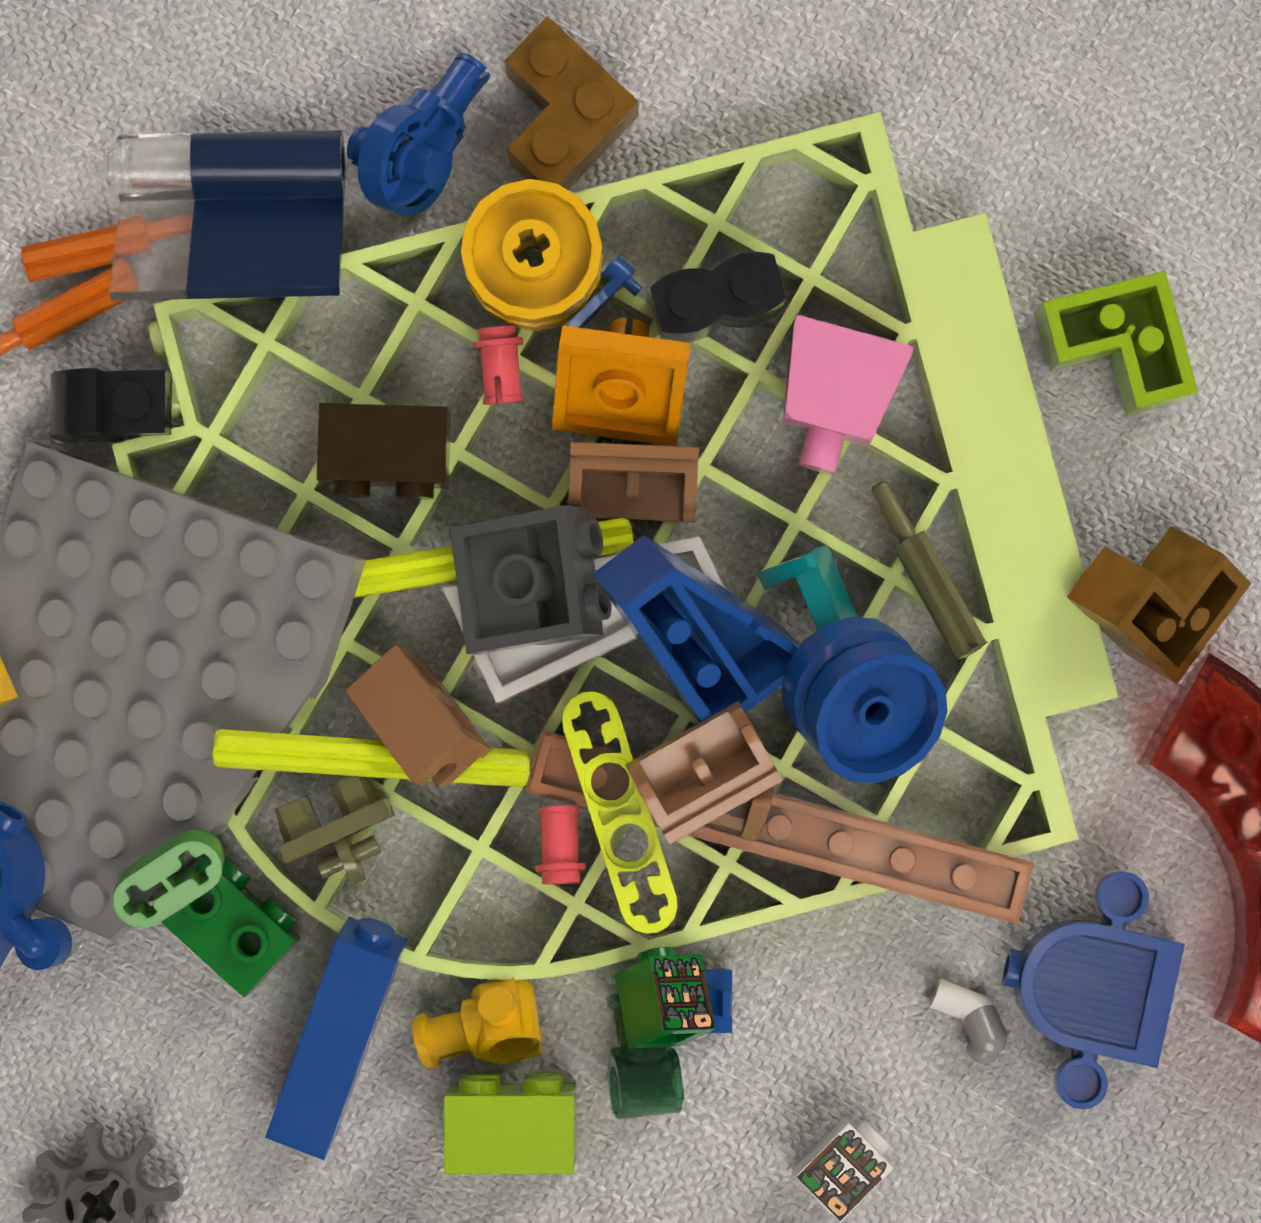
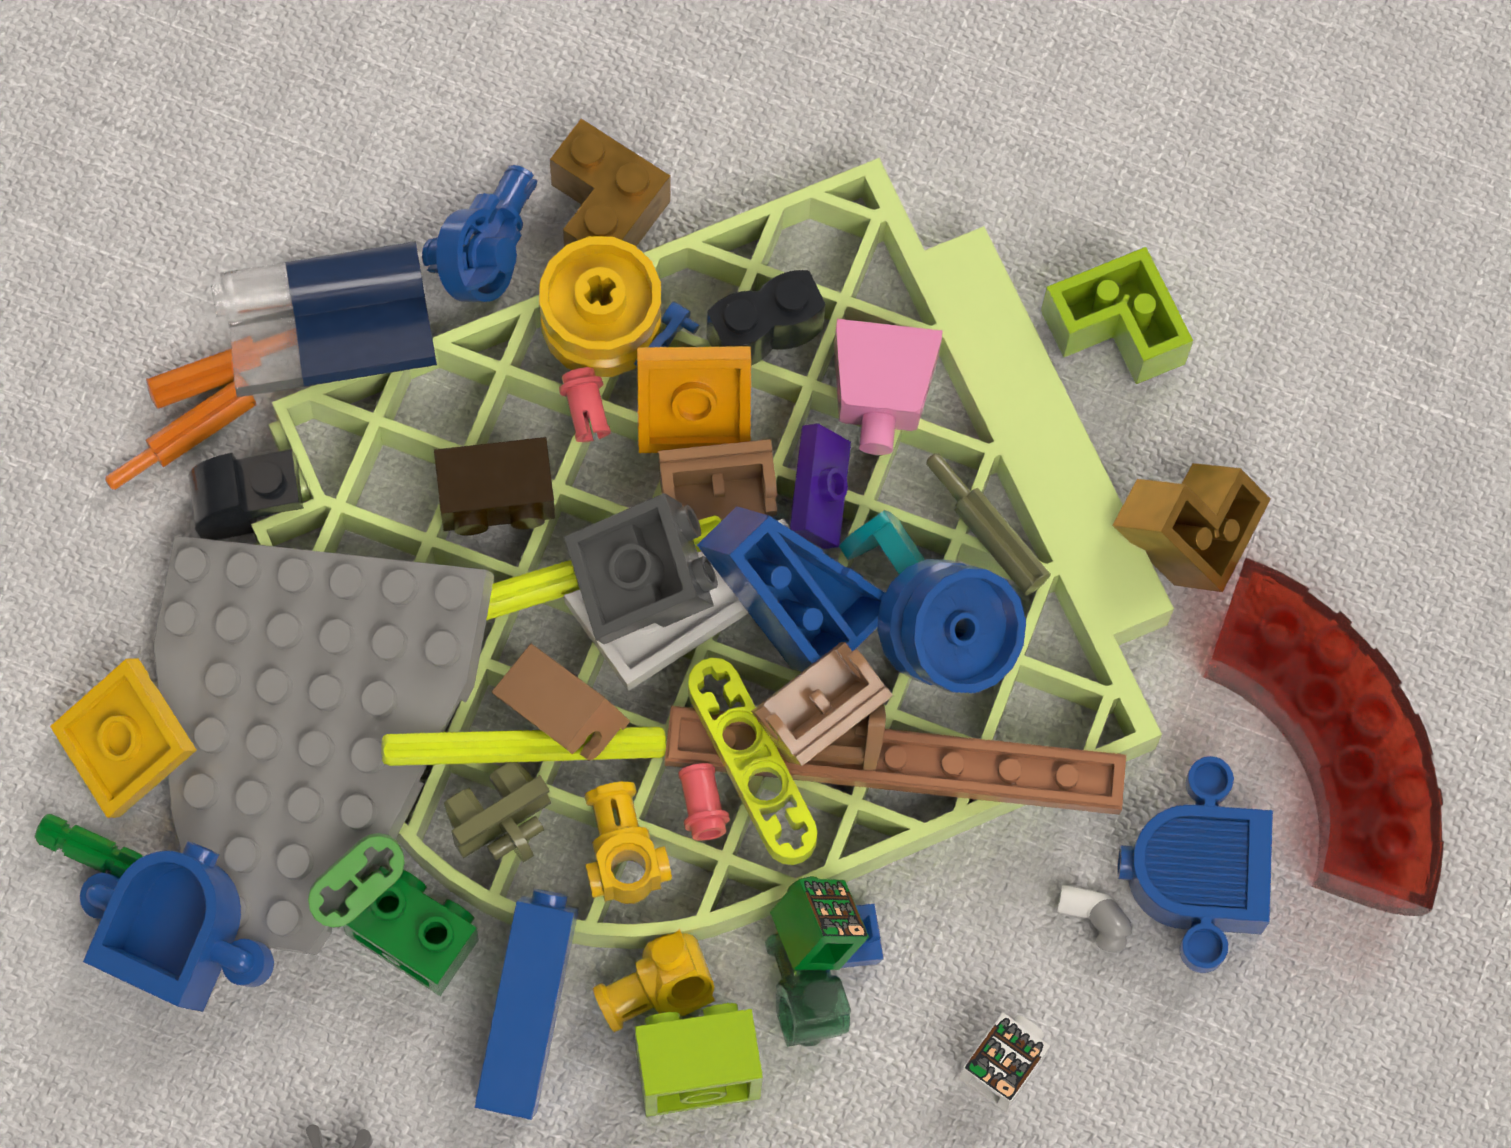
camera: 15 degrees left, 15 degrees down
(463, 880) = (622, 844): none -> yellow connector
(747, 503) = (820, 486): none -> dark purple plate

